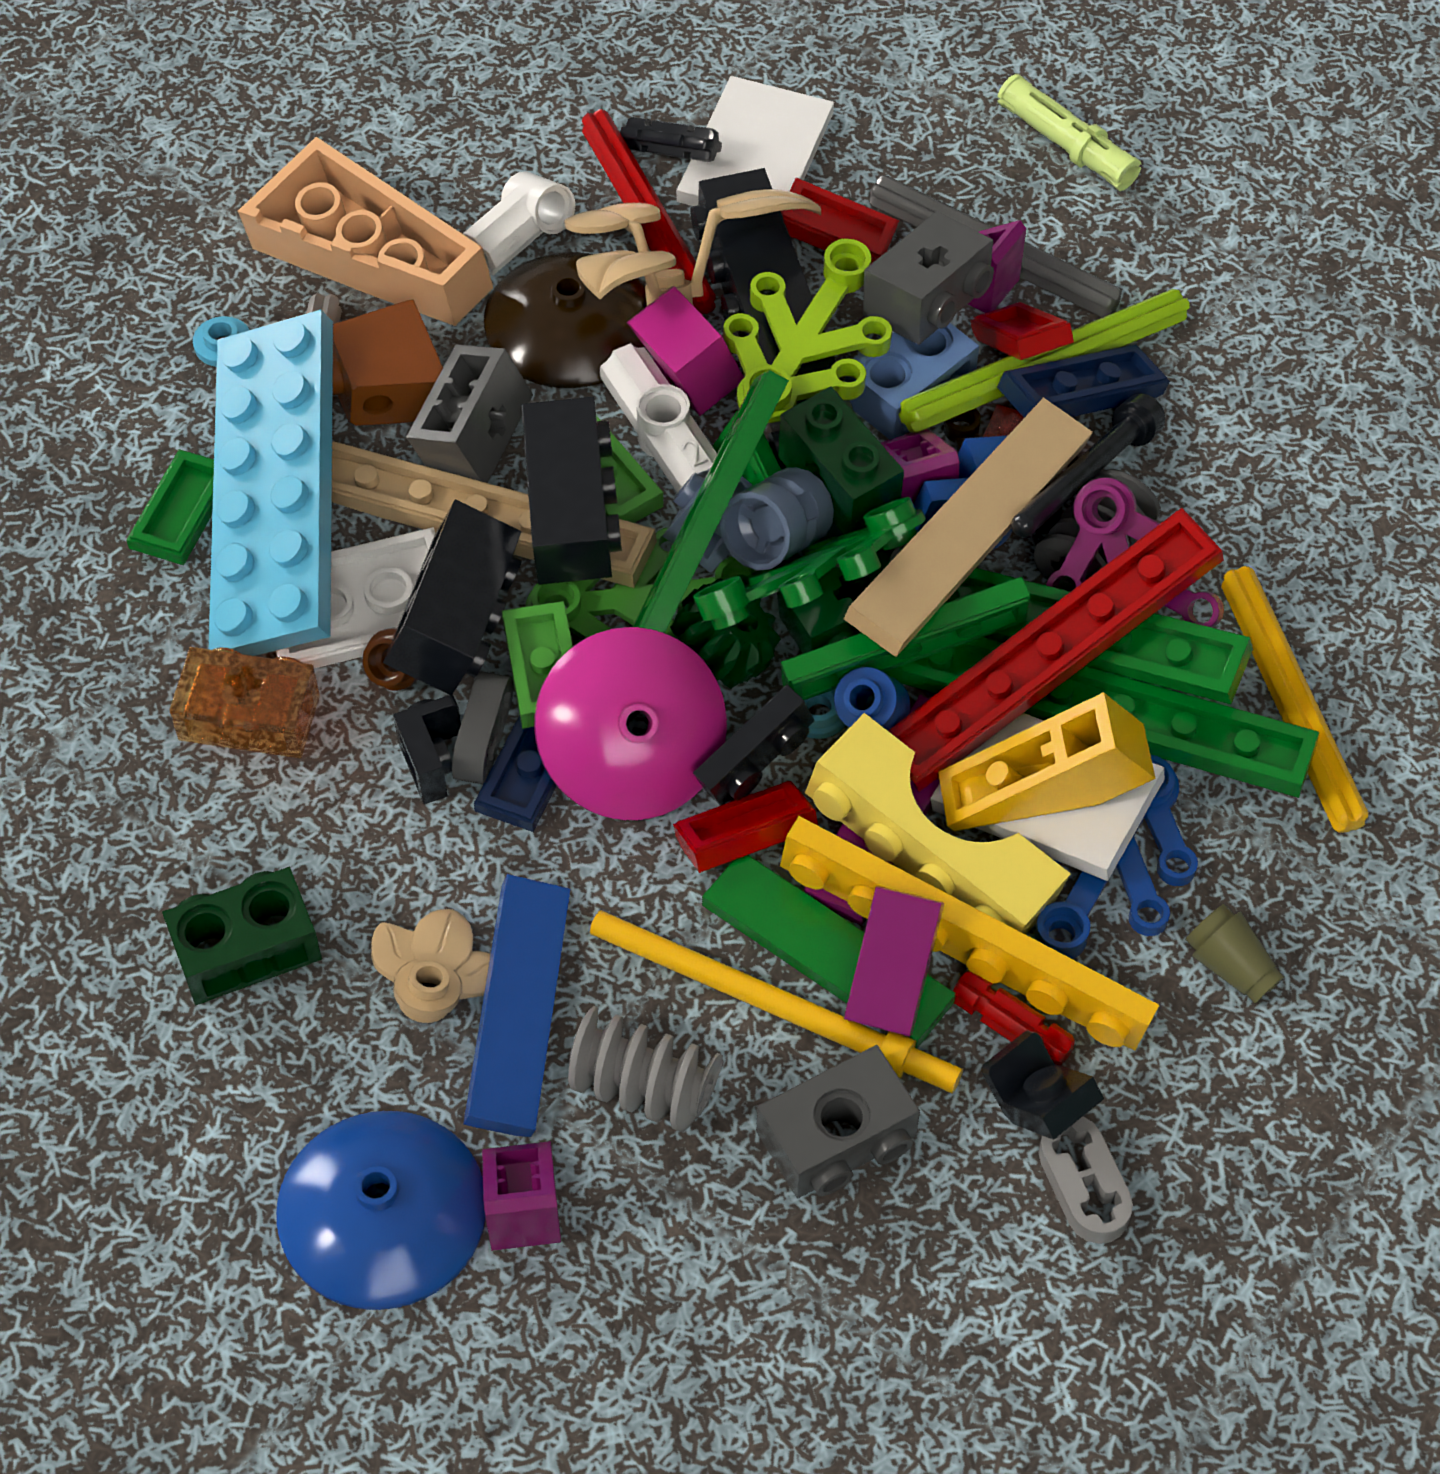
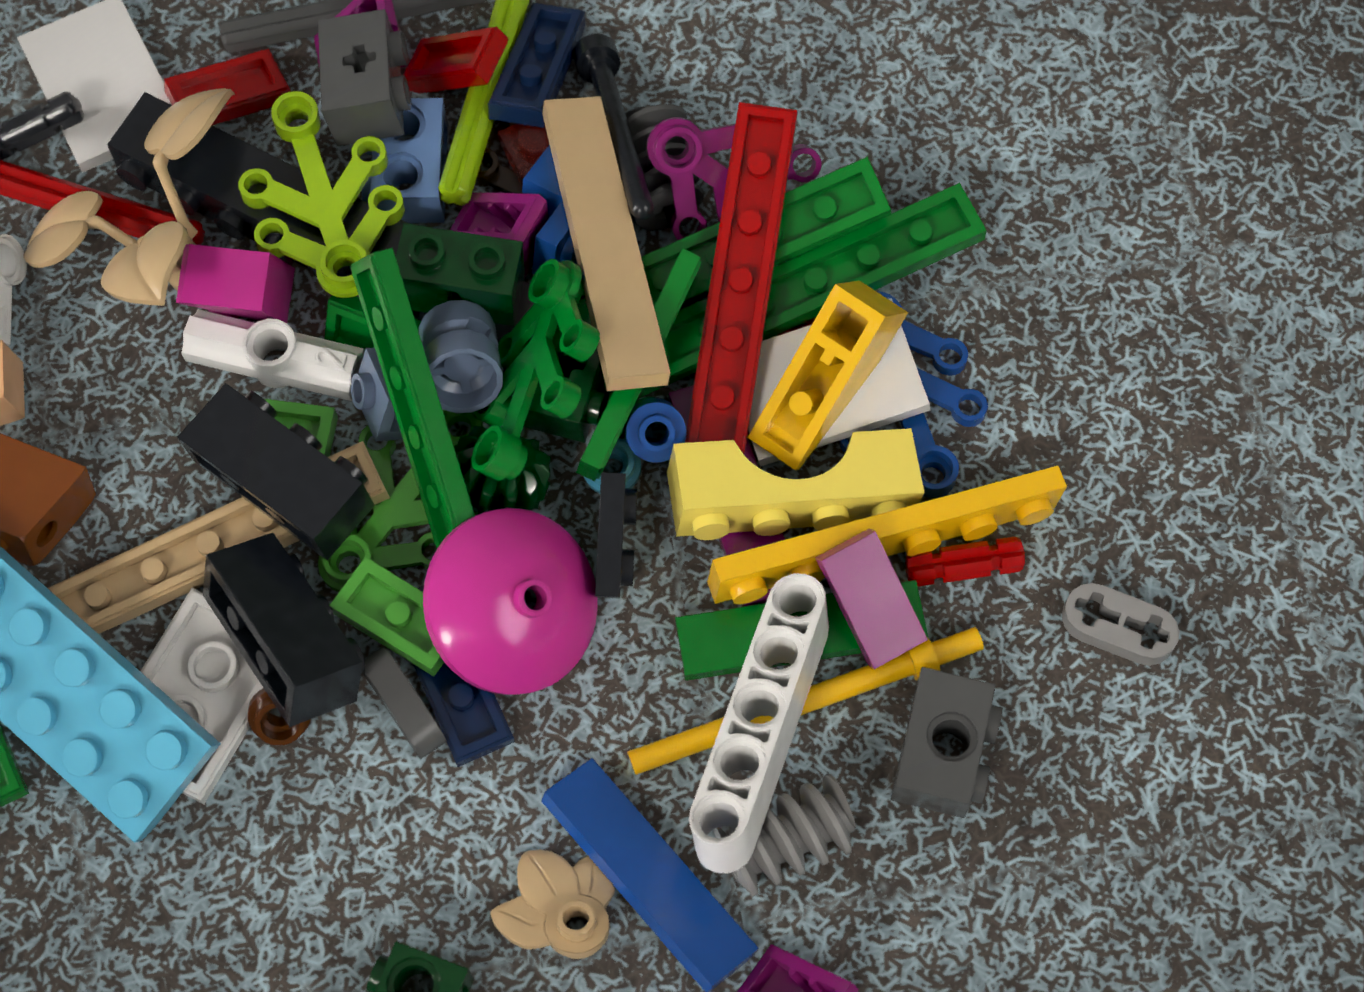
camera: 45 degrees left, 10 degrees up
(245, 701) = (183, 876): clear orange brick -> none
(421, 739) = (387, 764): black bracket -> none
(470, 412) = (129, 476): dark grey brick -> none
(556, 324) = (106, 363): dark brown dish -> none
(703, 960) = (760, 746): none -> white beam
(742, 826) = (658, 597): red tile -> none
(1036, 1090) = (1041, 594): black bracket -> none
(1234, 953) = (1049, 383): olive cone -> none
(1294, 698) = (905, 173): yellow axle -> none

